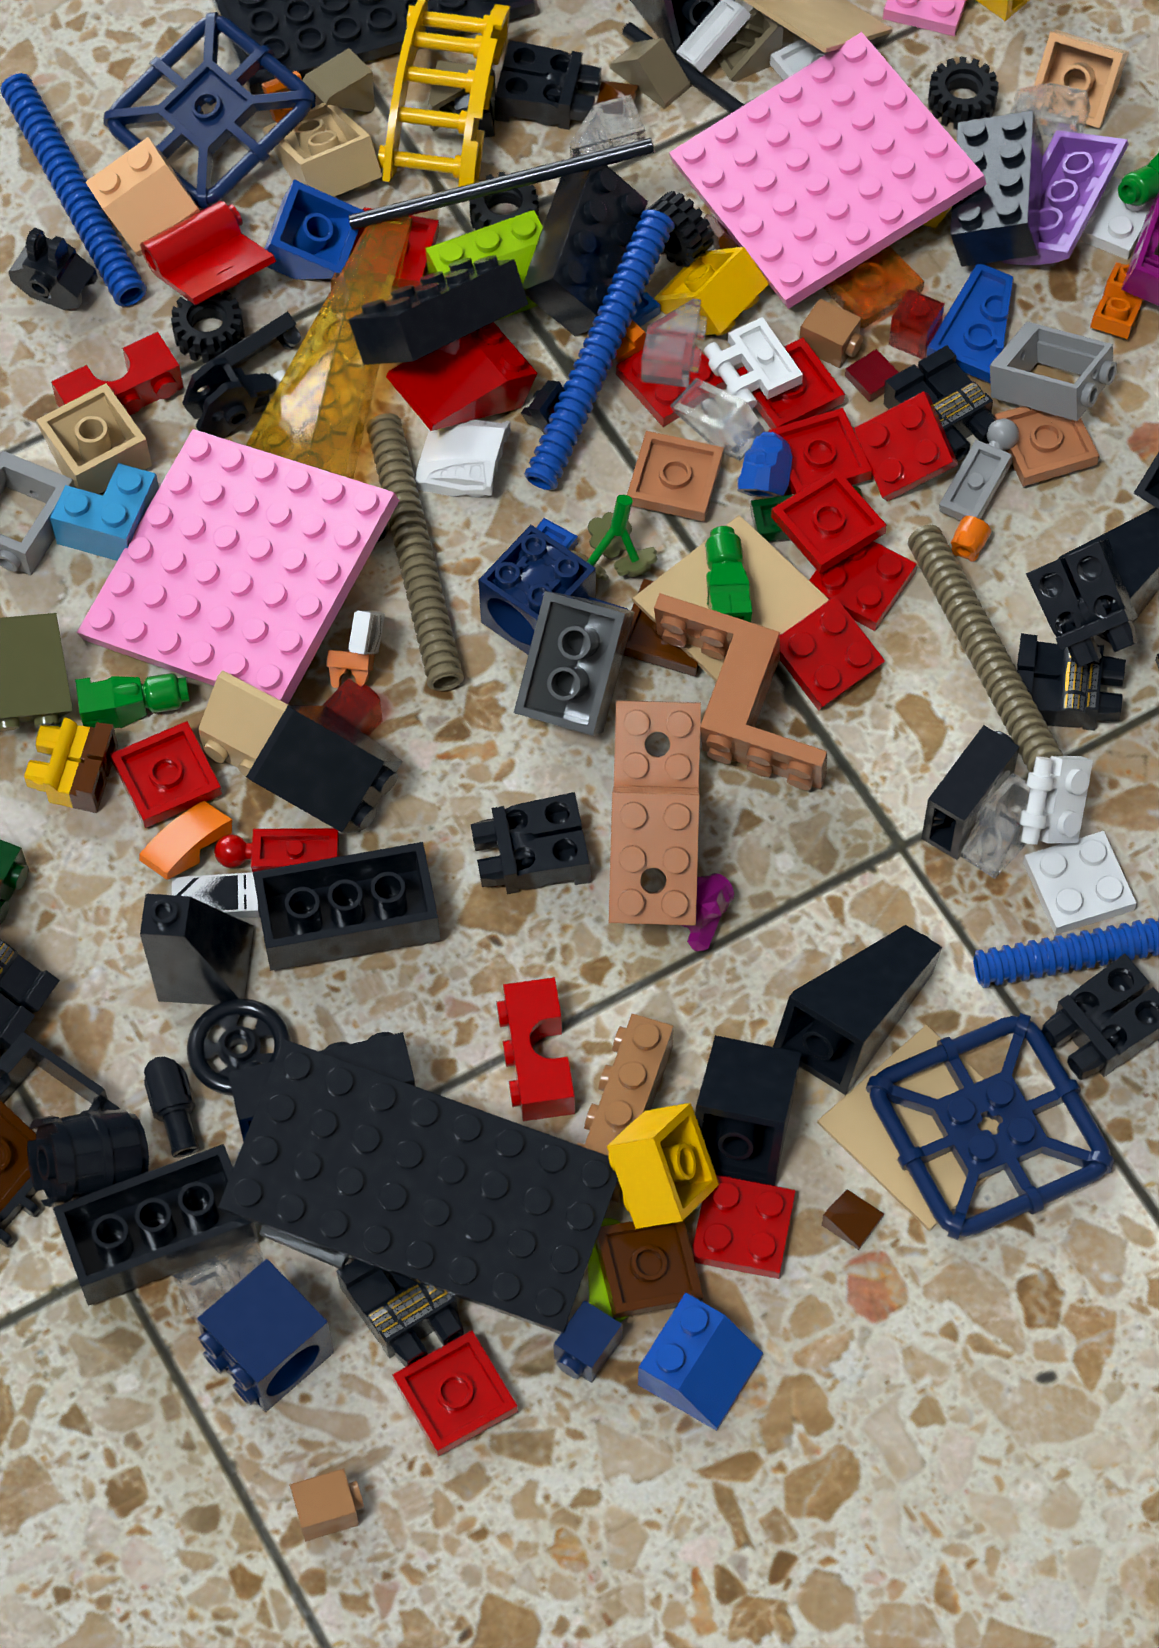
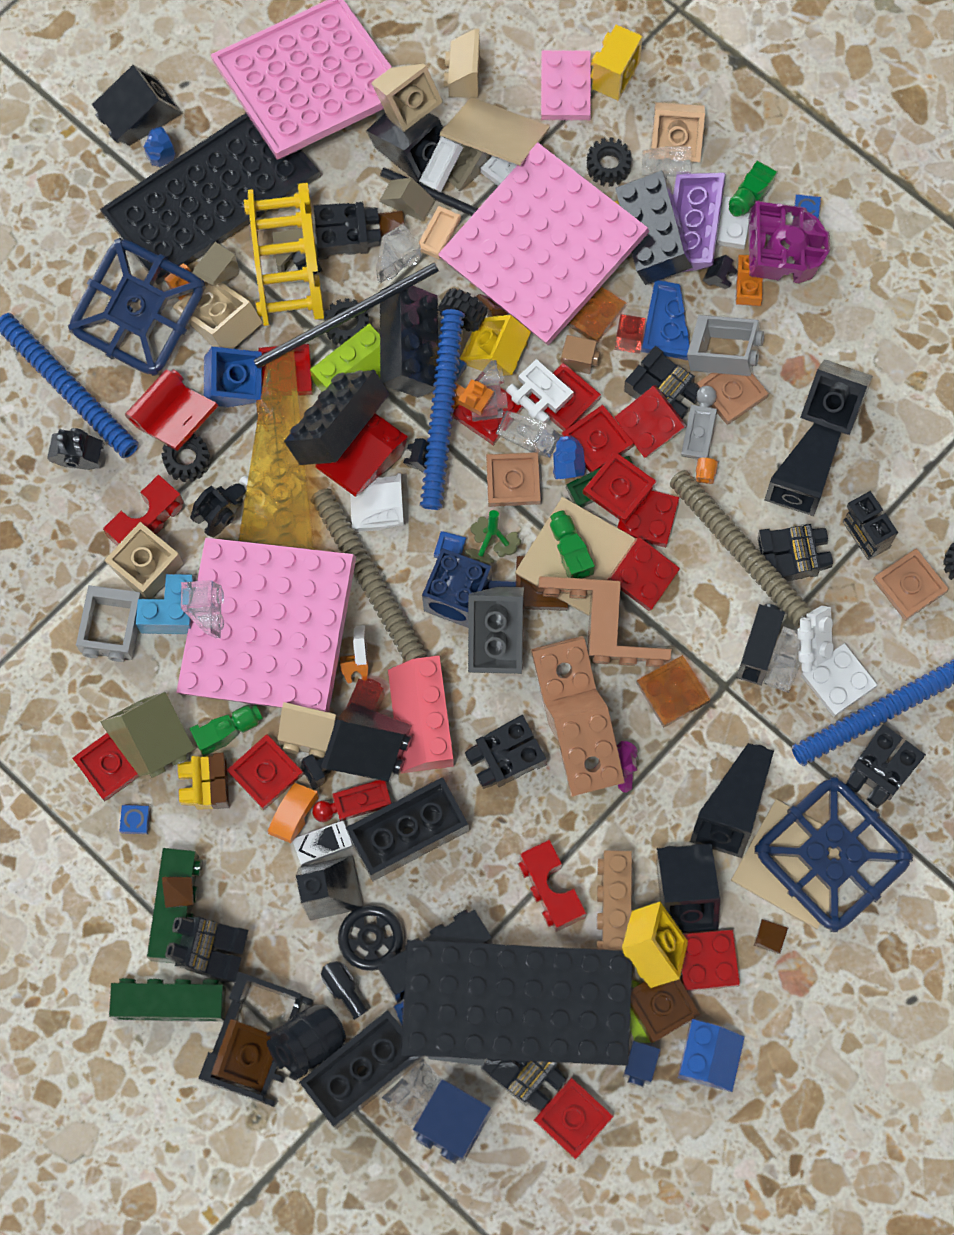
camera: 15 degrees left, 10 degrees up
(142, 194) = (115, 380): light nougat slope -> none
(155, 511) = (203, 605): none -> clear slope
(240, 791) = (313, 771): none -> black tile
(280, 329) = (232, 449): black hinge -> none
(326, 1504) = (521, 1211): medium nougat brick -> none
(433, 738) = (421, 702): none -> coral slope
(653, 338) = (476, 397): none -> orange tile
(682, 123) = (439, 231): none -> light nougat tile
(817, 827) = (673, 691): none -> clear orange plate
(870, 373) = (612, 374): dark red tile -> none
(1078, 274) = (717, 272): none -> black tile
(1083, 599) = (796, 504): black hips -> none

